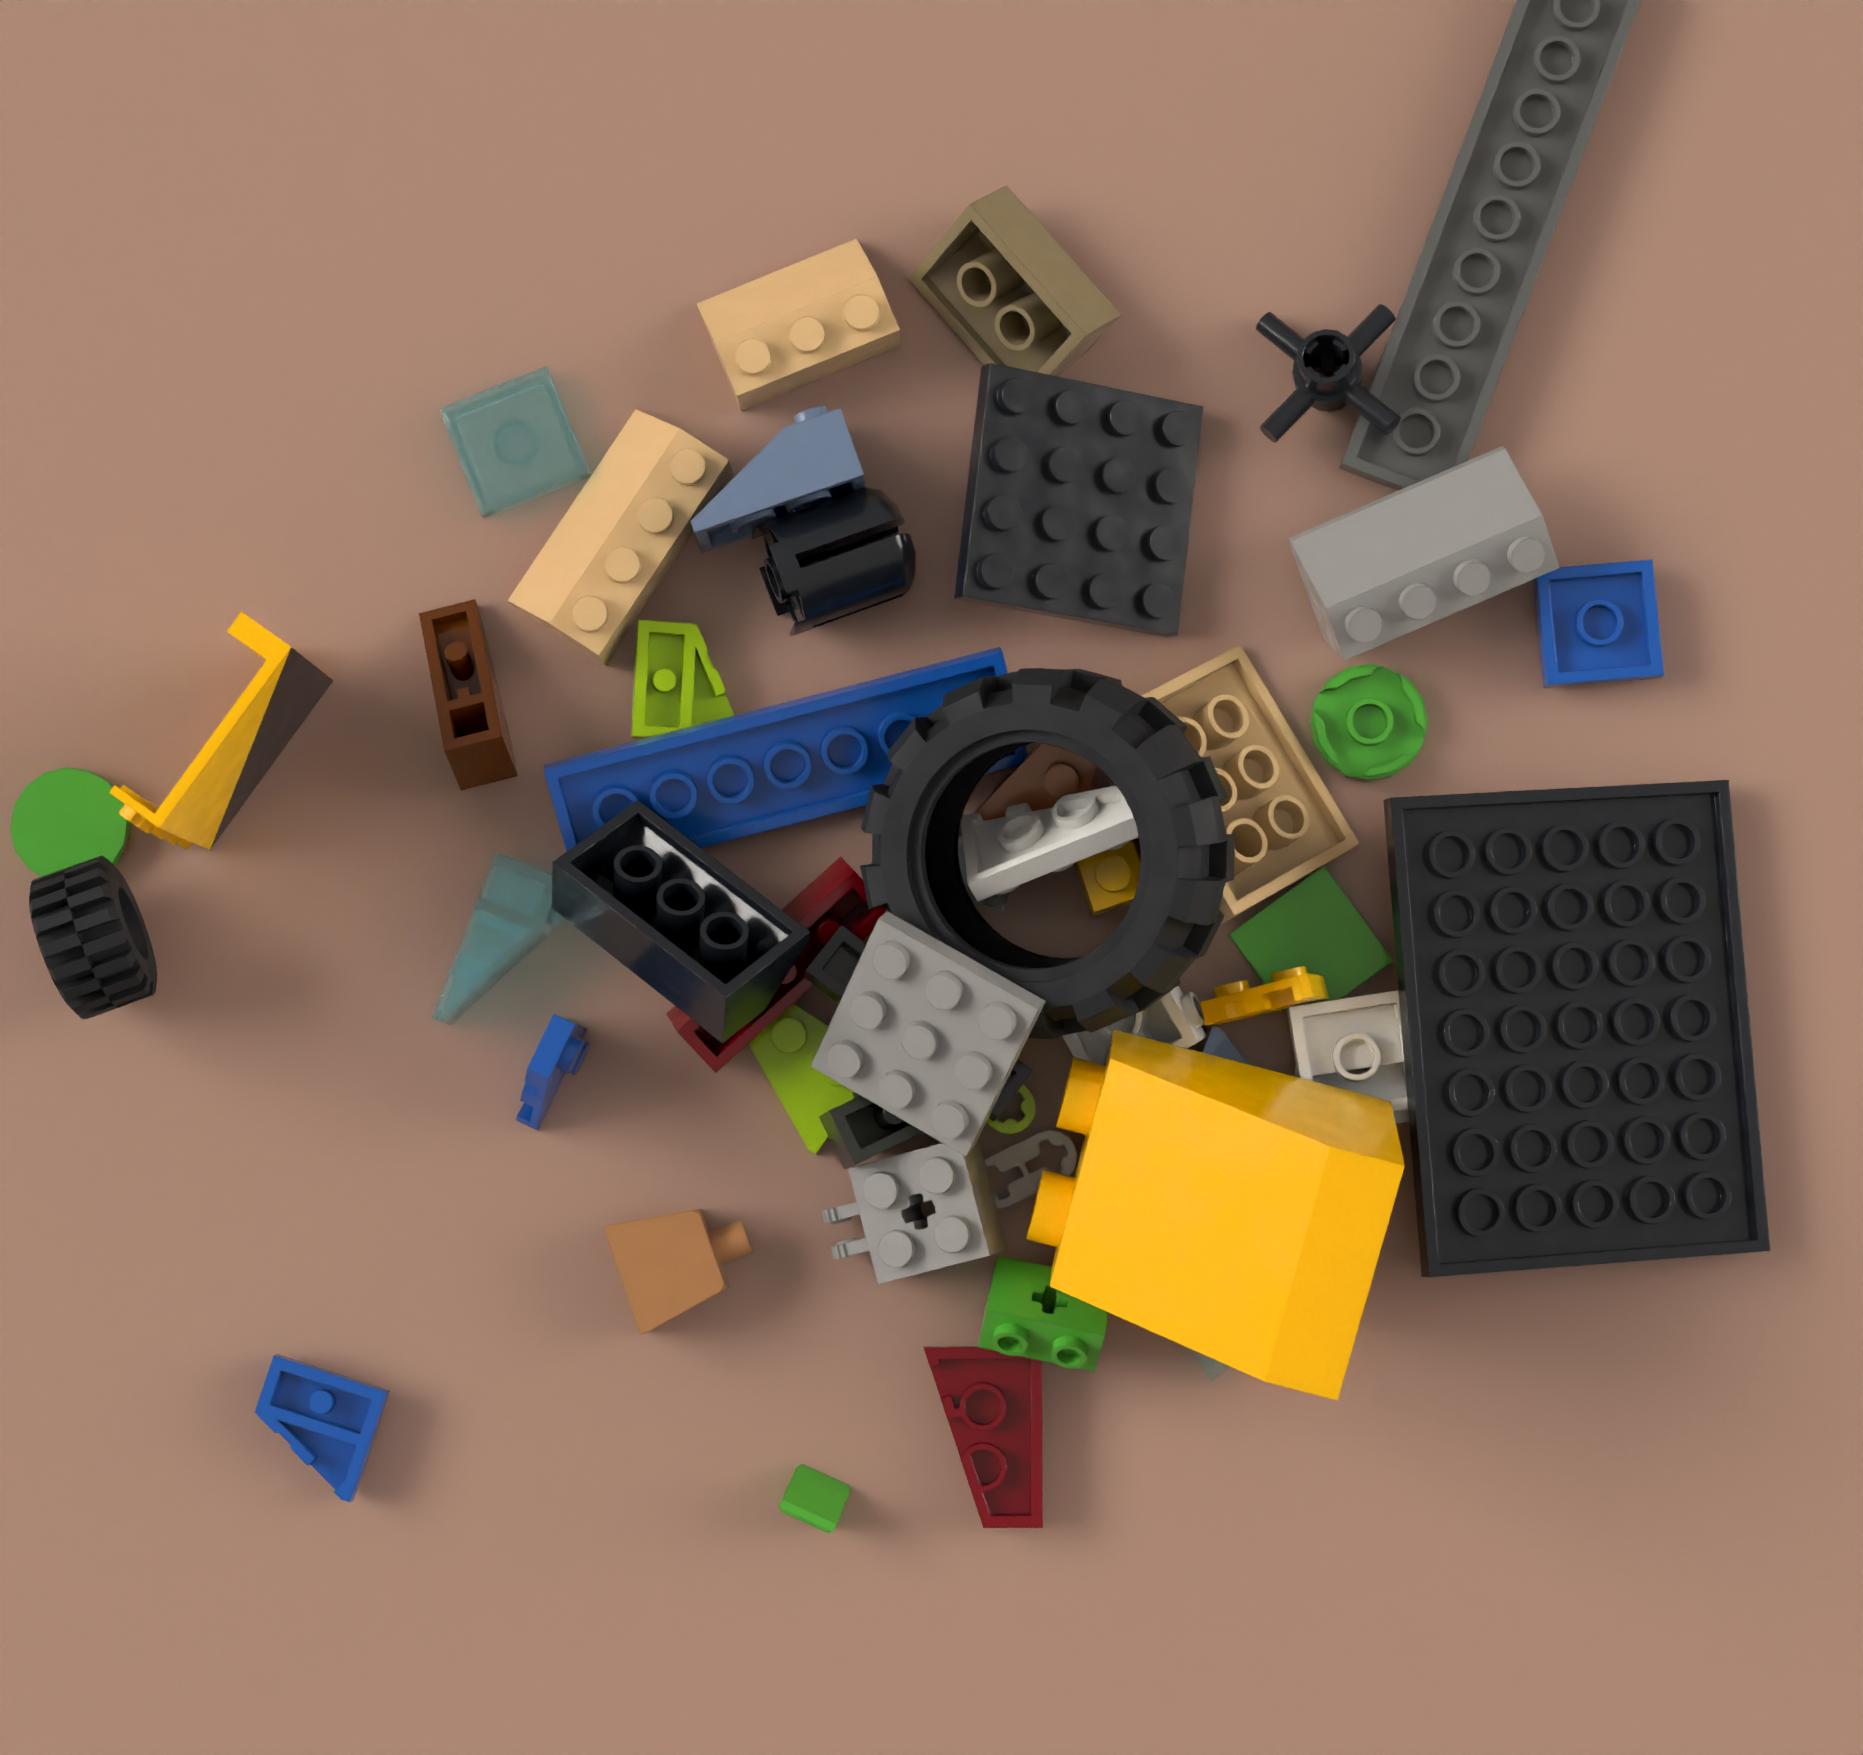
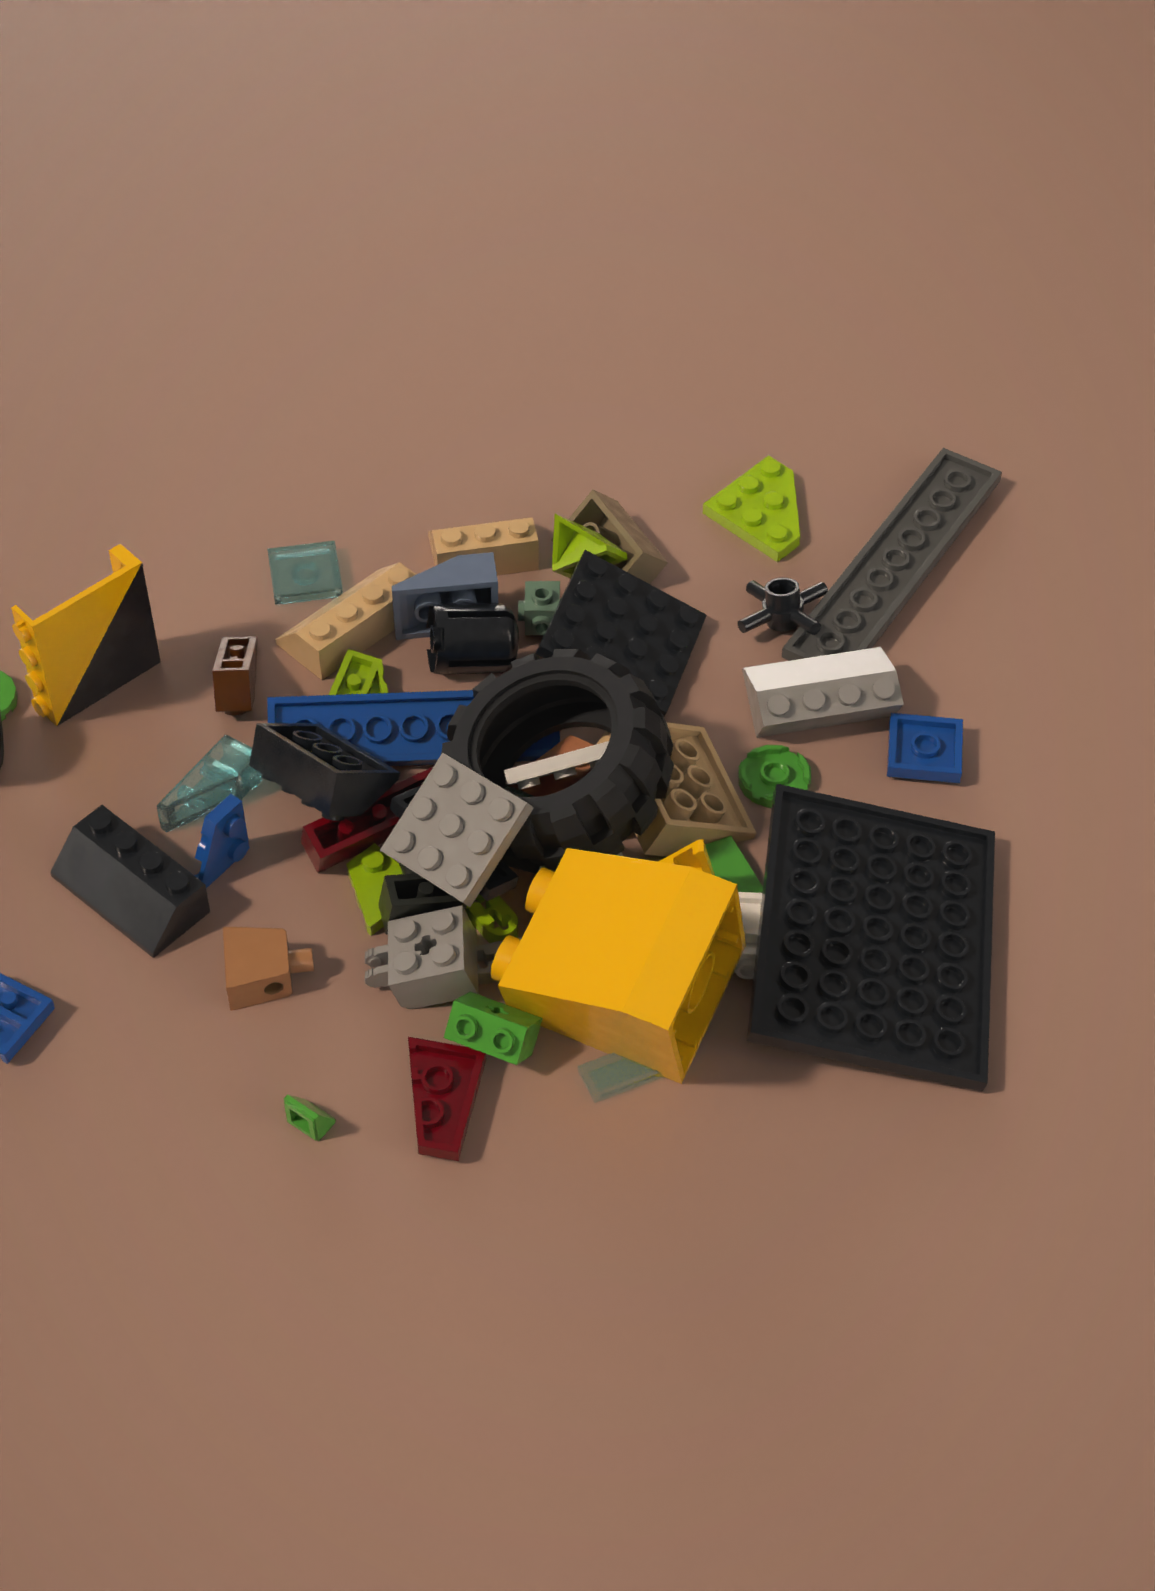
camera: 10 degrees right, 35 degrees down
(428, 1151) = (130, 881): none -> black slope
(928, 445) = (539, 605): none -> sand green brick
(985, 330) = (572, 539): none -> lime slope
(1249, 130) = (760, 508): none -> lime plate

